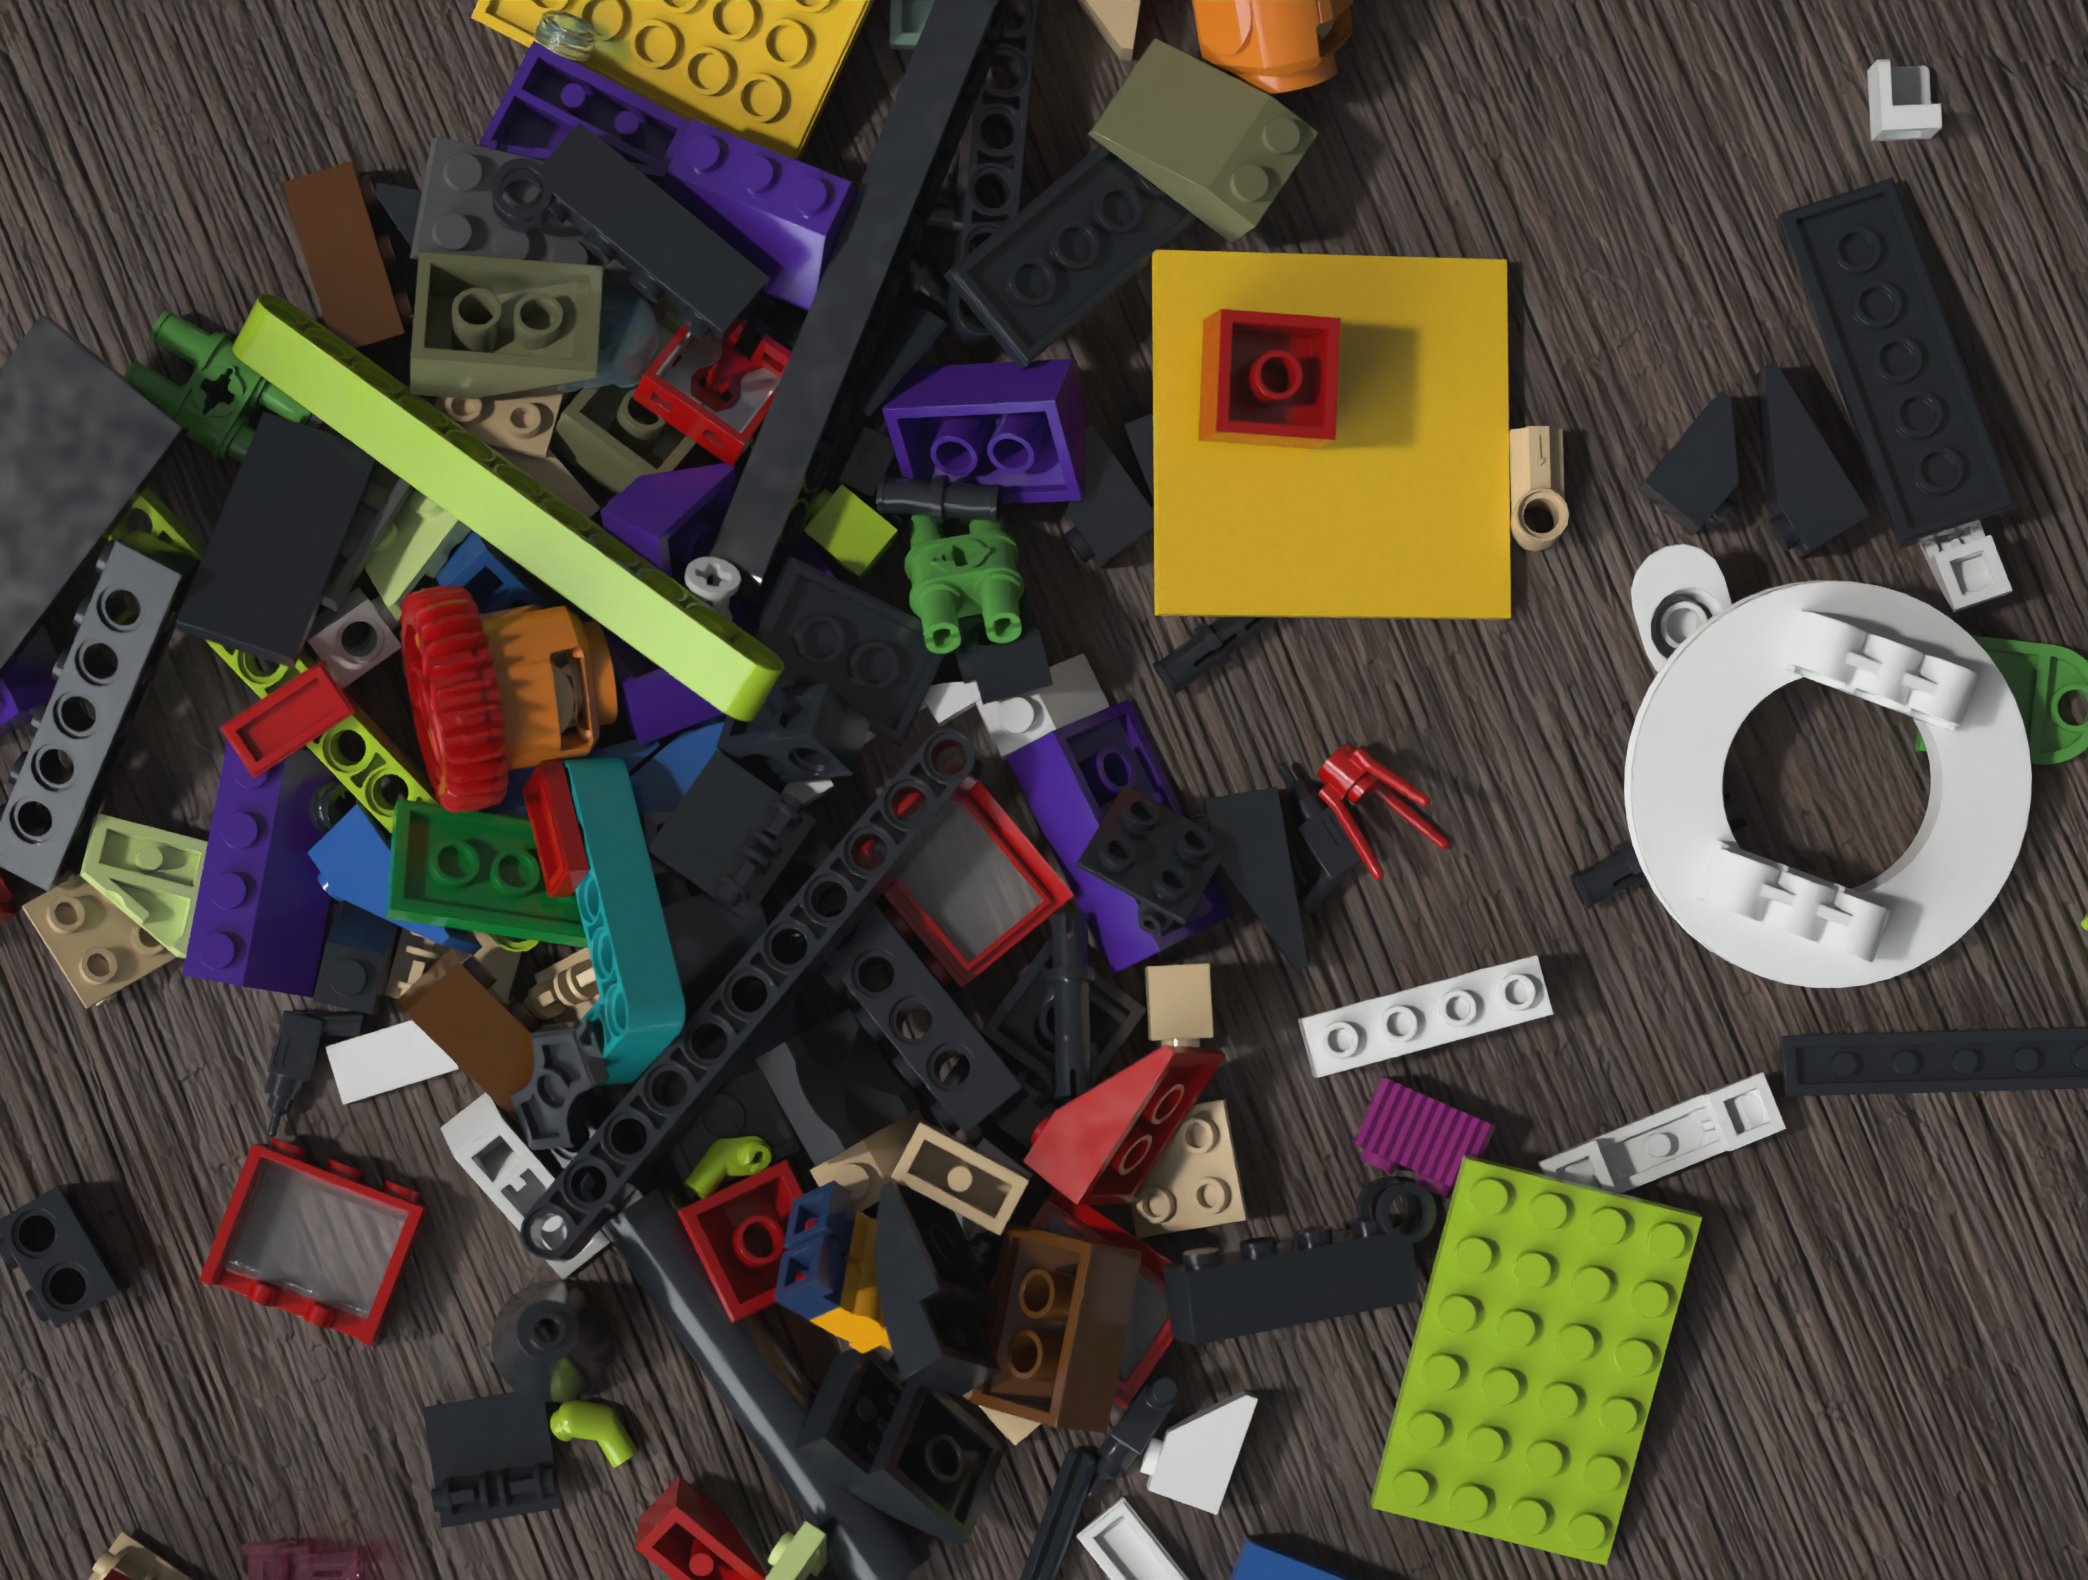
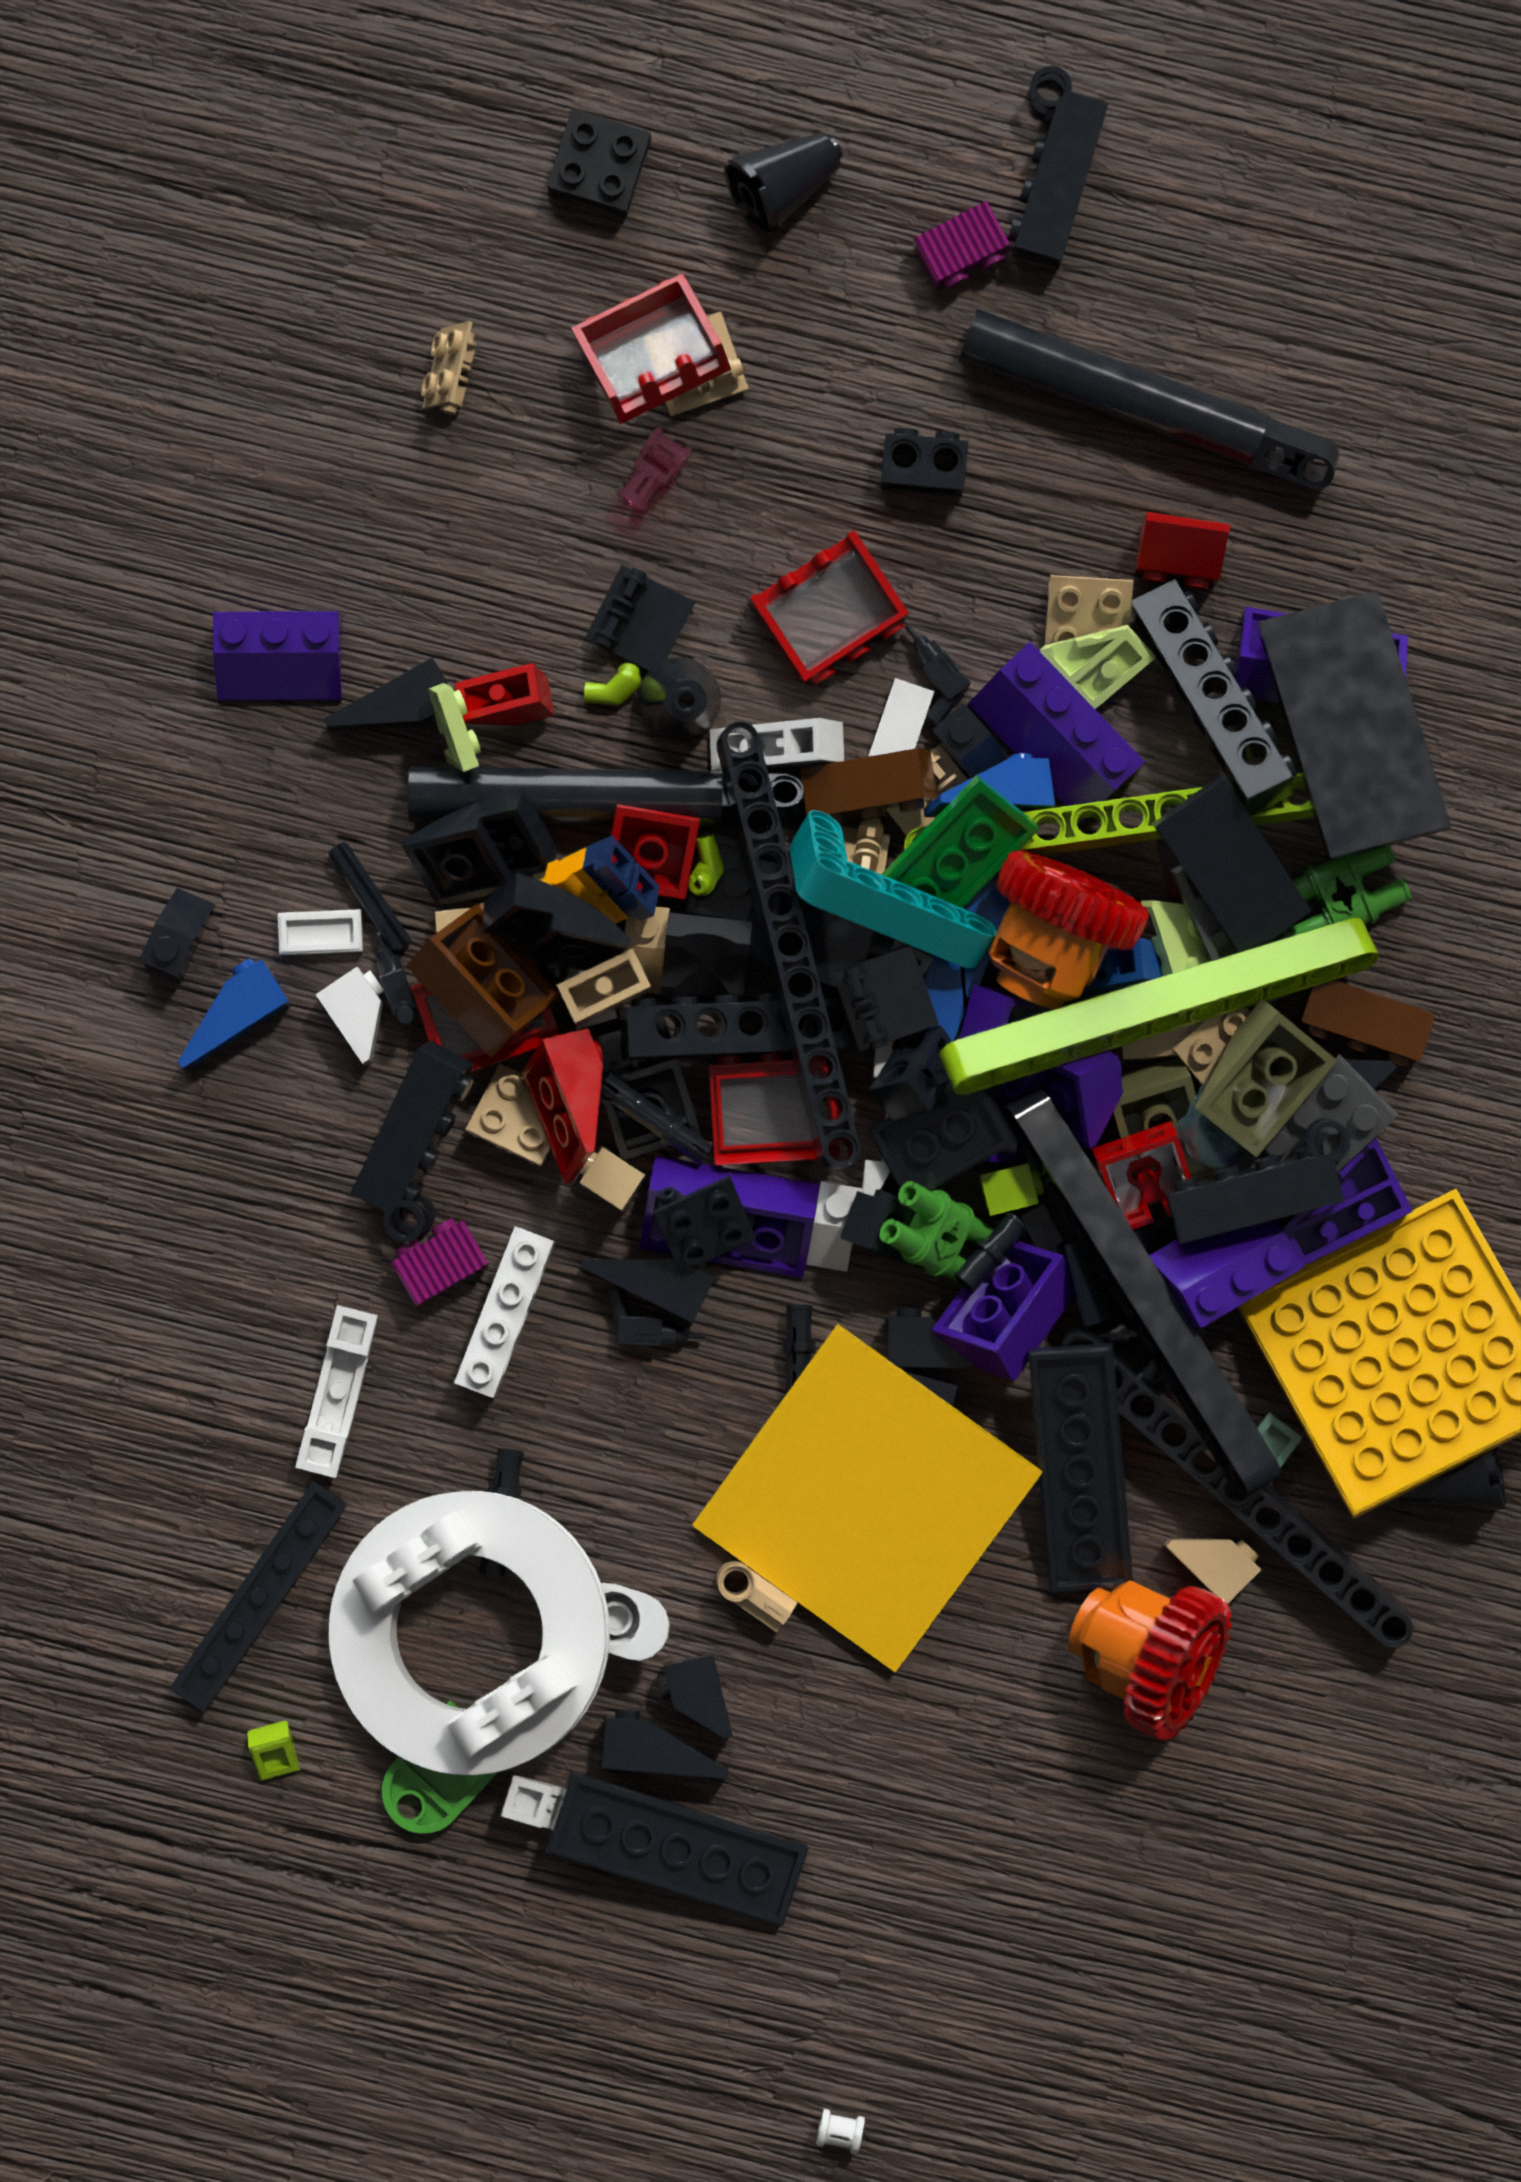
camera: 125 degrees right, 0 degrees up
(289, 718) = (1128, 801): red tile -> none
(323, 802) = (1069, 786): black bush -> none
(353, 662) = (1137, 859): white brick -> none
(555, 828) = (959, 903): red tile -> none
(563, 1072) = (821, 811): black tile -> none
(566, 35) = (1404, 1232): clear light blue tile -> none
(724, 585) = (1027, 1094): white bush -> none
(1203, 138) = (1086, 1547): olive slope -> none
(1269, 379) = (921, 1481): red brick -> none
(1355, 775) = (666, 1371): red plant -> none
(1535, 1360) = (270, 1233): lime plate -> none
(1901, 103) = (821, 1964): white panel -> none

